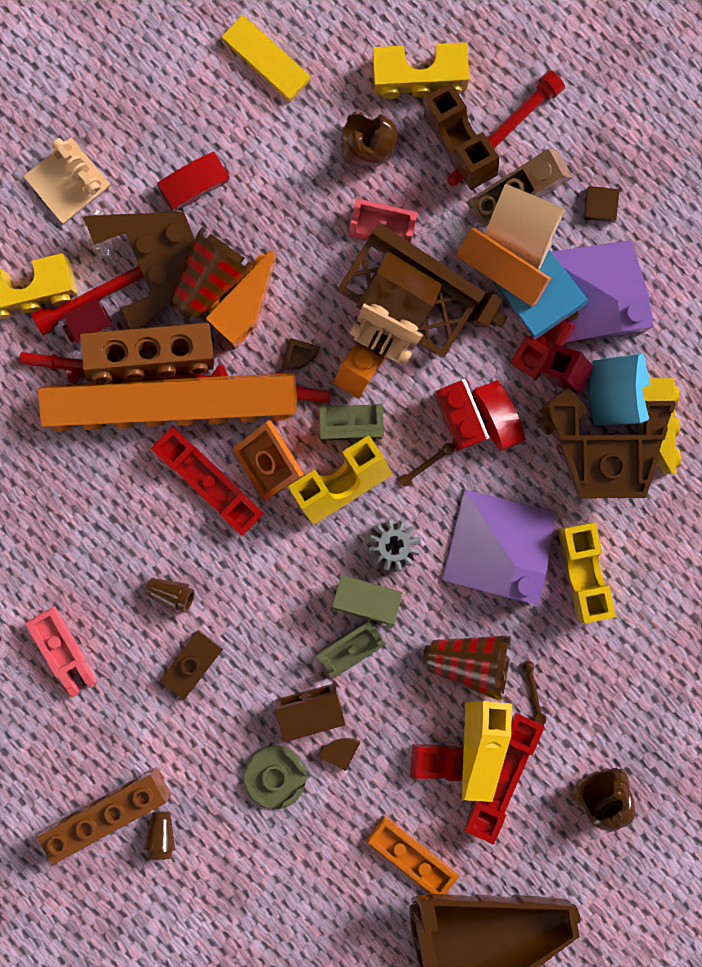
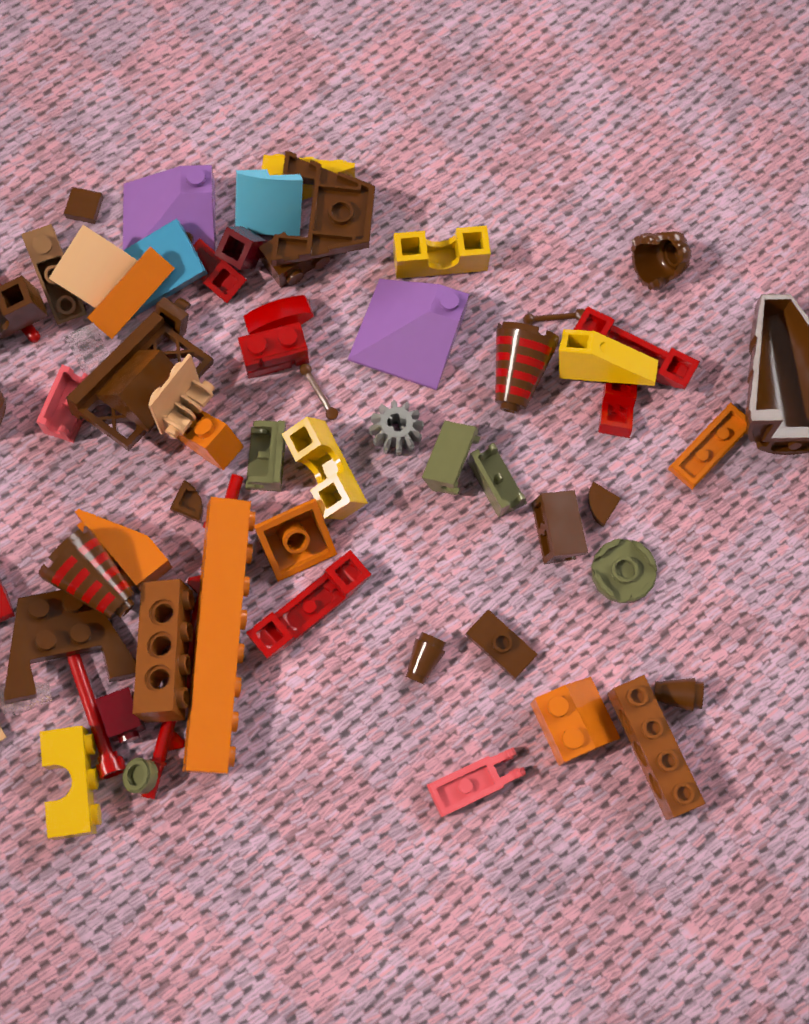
camera: 90 degrees left, 15 degrees down
(36, 348) = (140, 776): none -> olive tile
(124, 739) = (574, 720): none -> orange slope

